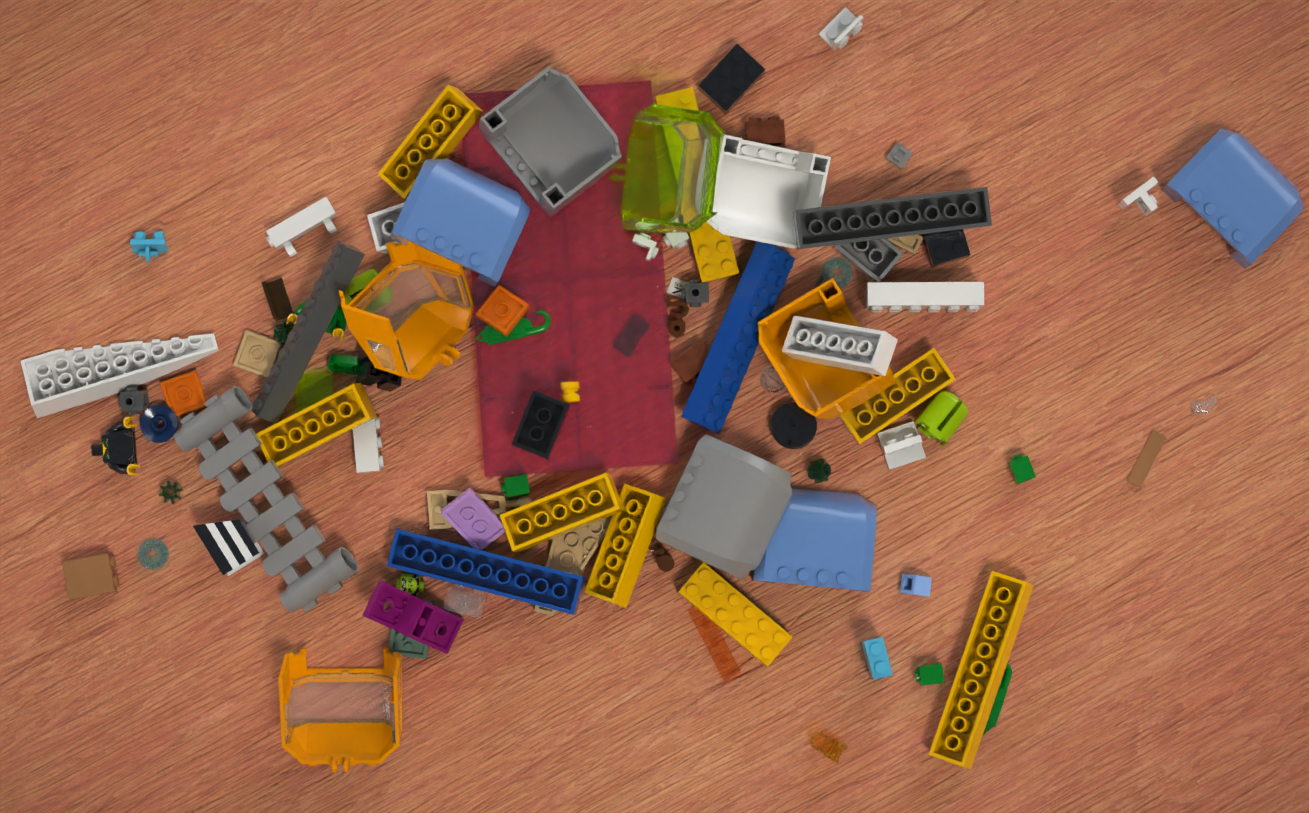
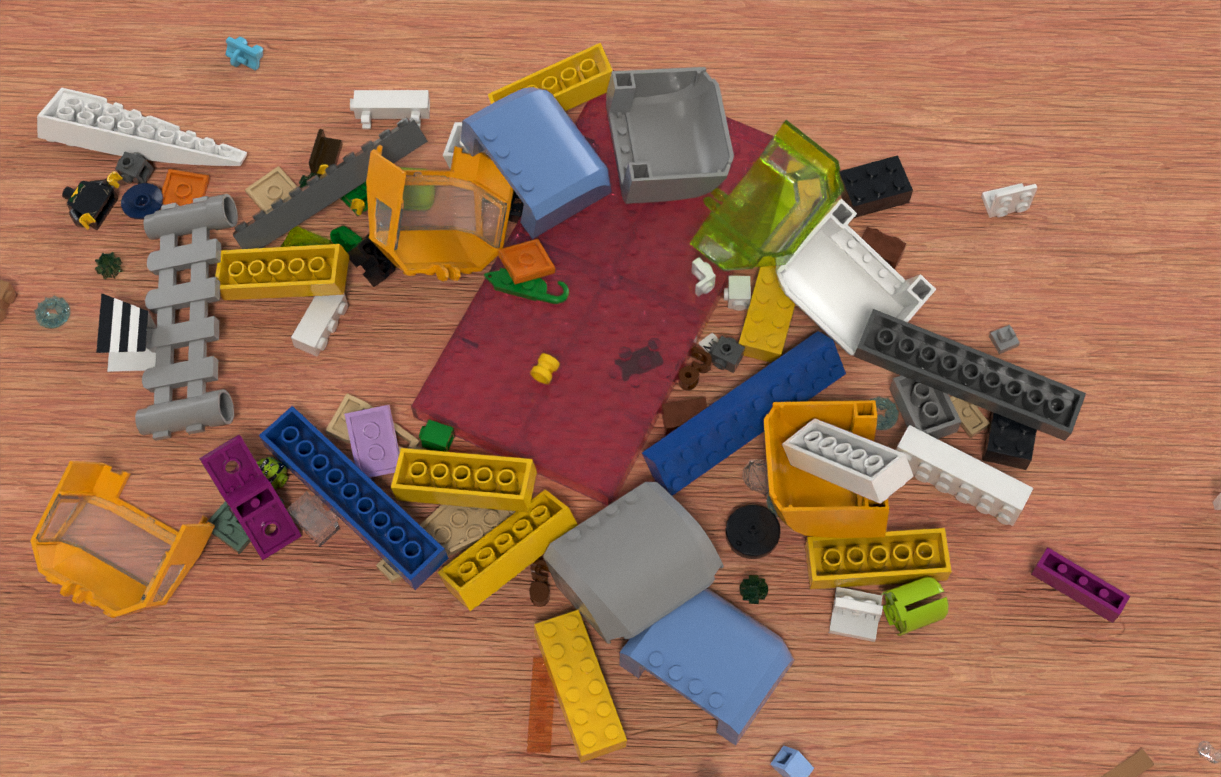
camera: 25 degrees right, 20 degrees down
(540, 425) = (495, 381): black brick -> none
(1021, 468) = (974, 707): green brick -> none
(1052, 333) = (1080, 585): none -> magenta brick

